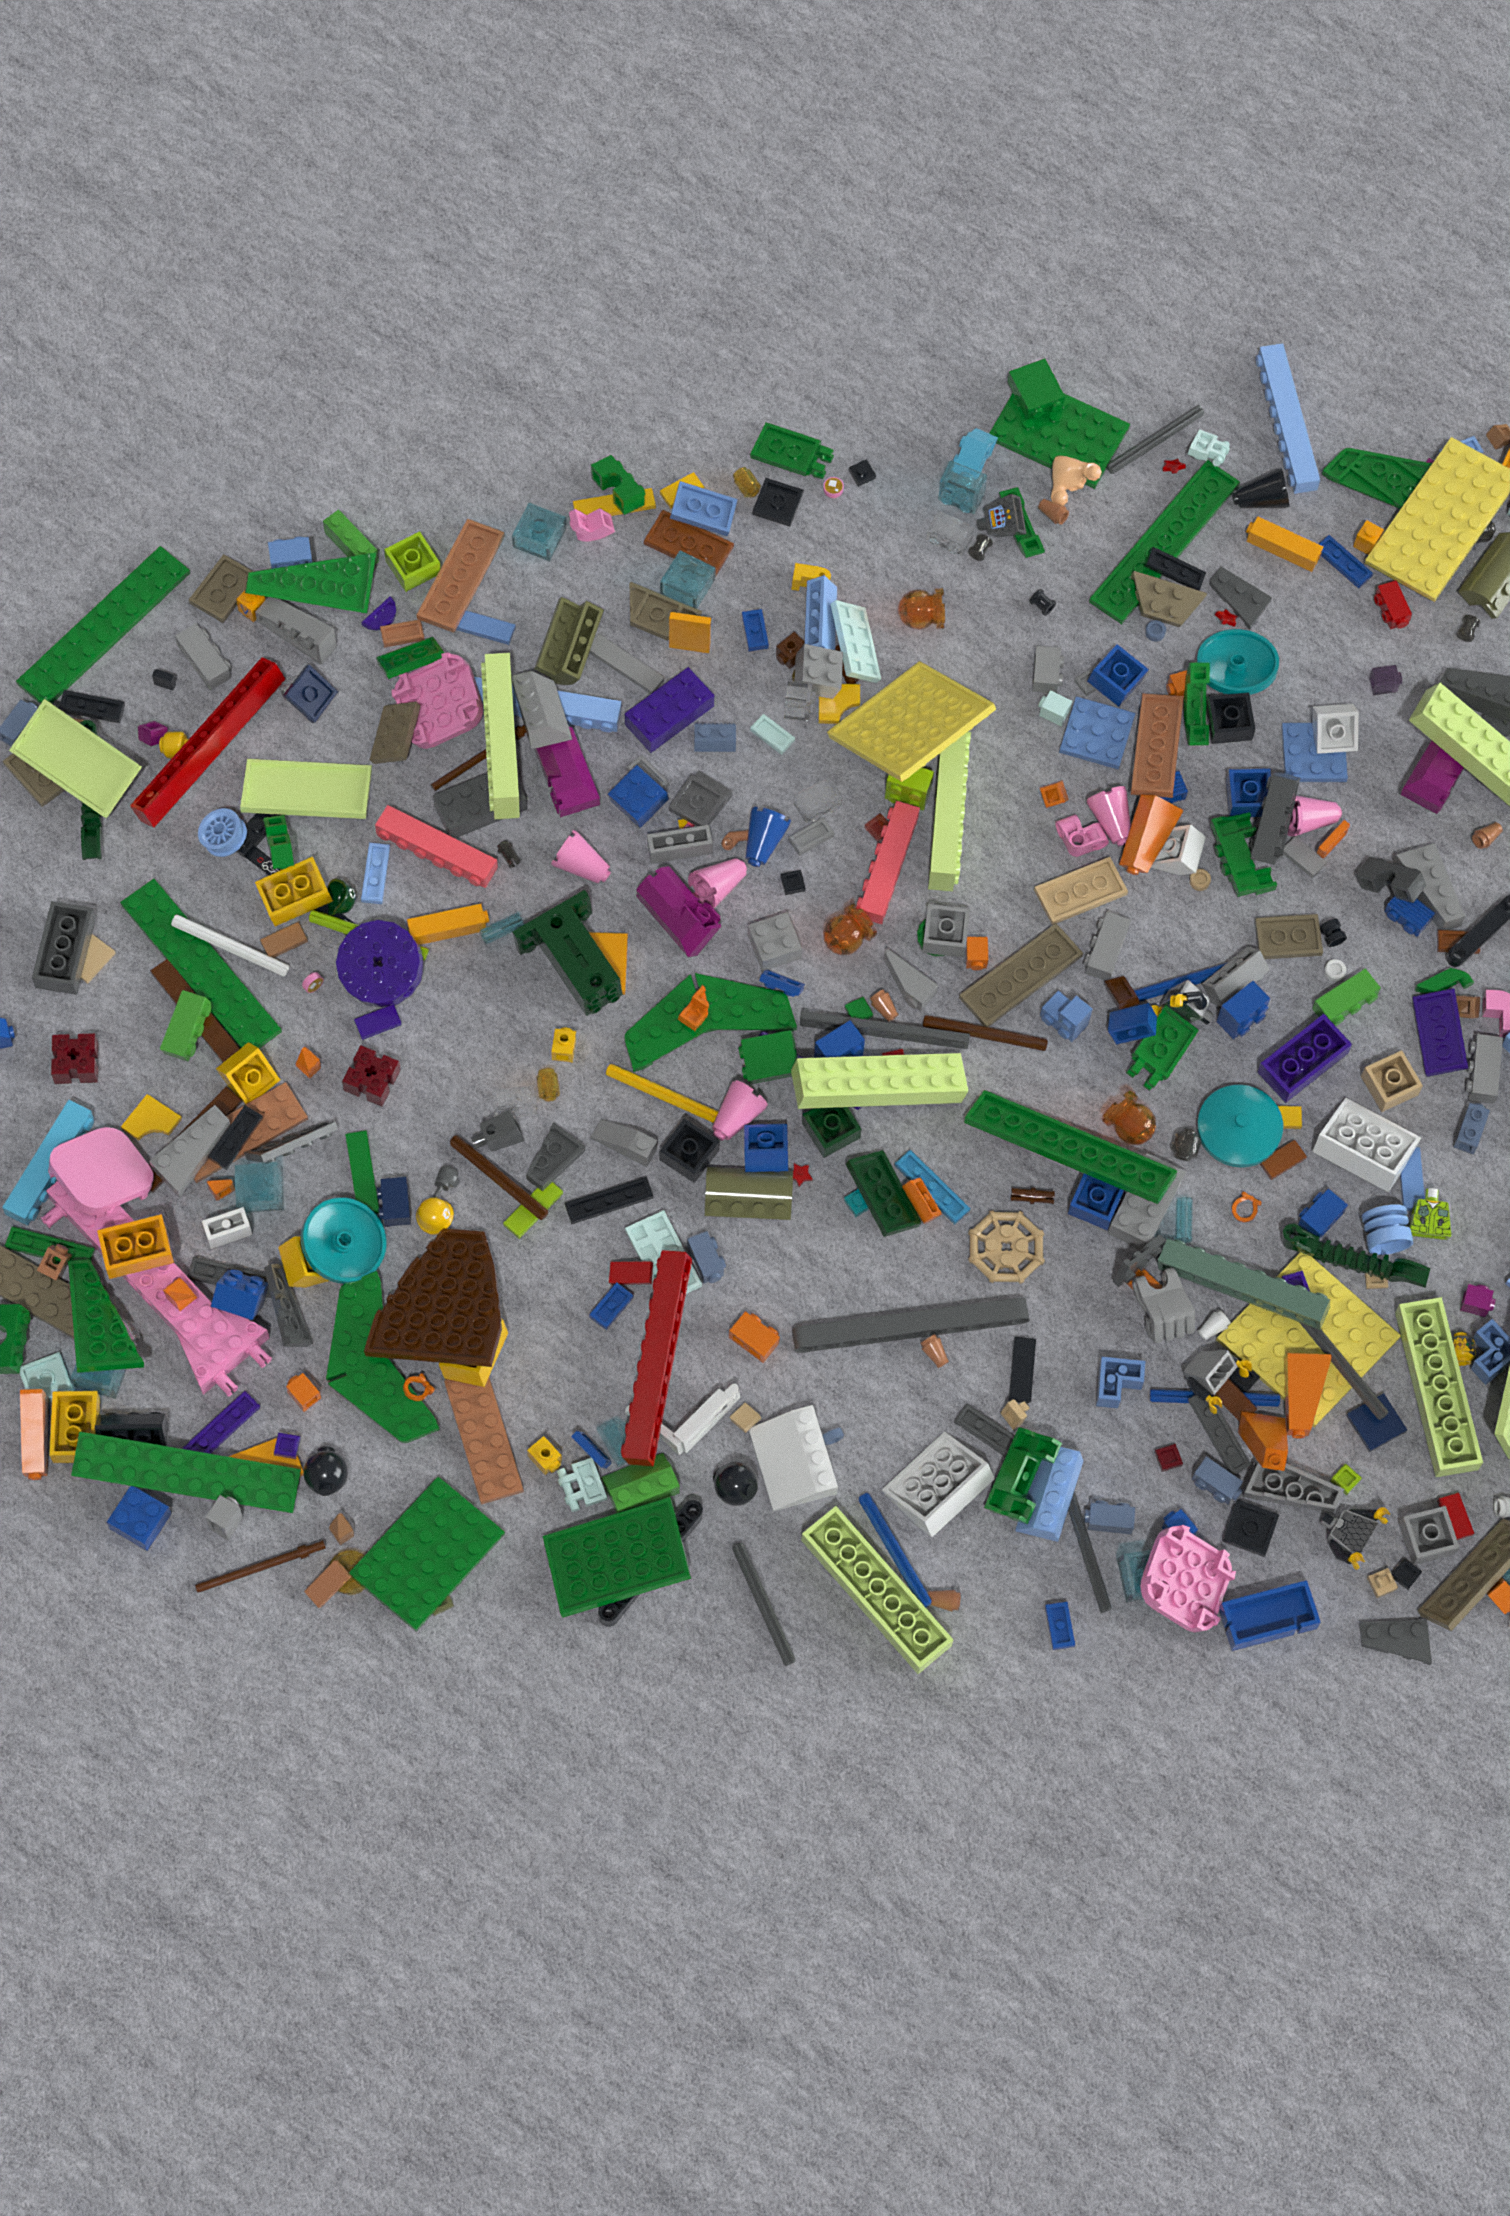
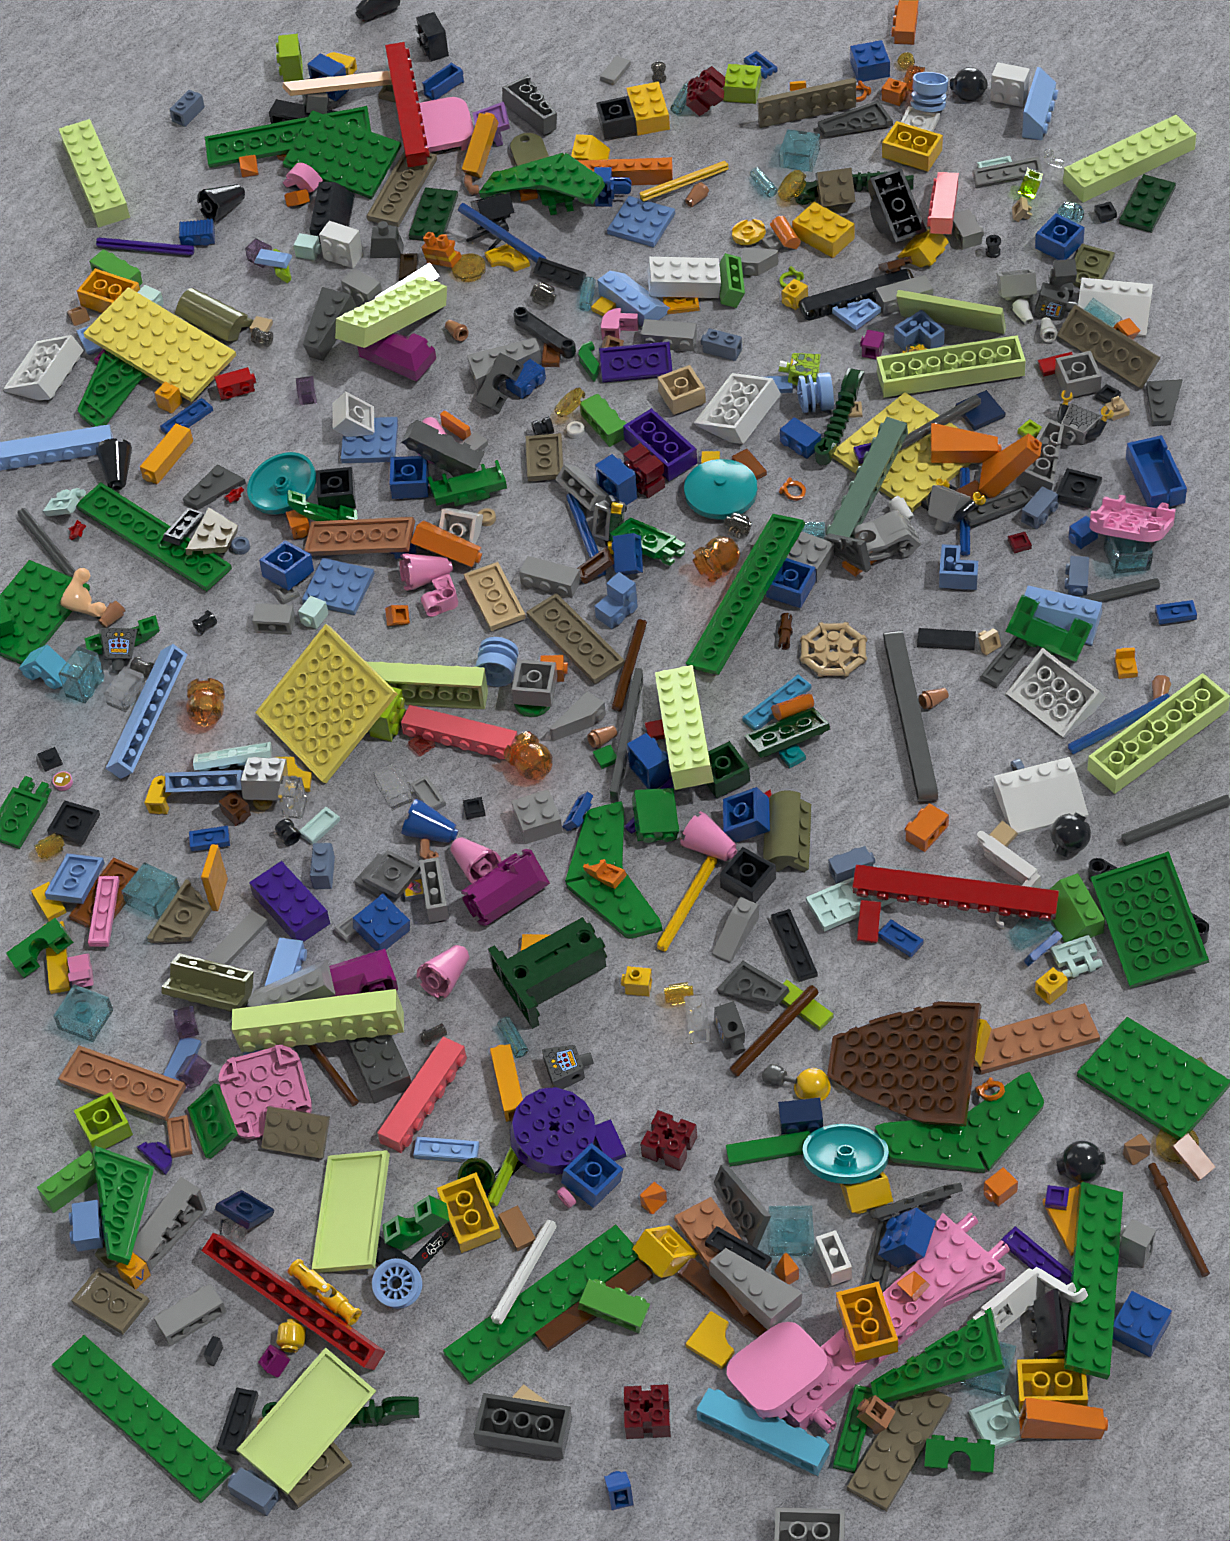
camera: 80 degrees left, 15 degrees down
(172, 1400) = (1022, 1293): none -> white hinge
(230, 762) = (317, 1286): none -> yellow piece
(331, 1003) = (592, 1175): none -> blue brick
(463, 977) = (565, 1065): none -> dark grey torso
(468, 636) = (193, 1071): none -> clear purple brick
(526, 625) = (186, 1022): none -> clear purple brick
(664, 539) = (103, 911): none -> bright pink tile
(760, 702) = (287, 832): none -> black wheel
(917, 555) = (146, 711): none -> light blue brick
(979, 891) = (498, 659): none -> light blue wheel
(984, 1565) = (1126, 663): none -> light orange bracket
(1260, 1039) = (647, 470): none -> dark red brick
(1370, 958) = (569, 402): none -> clear yellow tile
(1411, 408) = (45, 368): none -> white slope
(1489, 627) = (262, 323): none -> tan tile

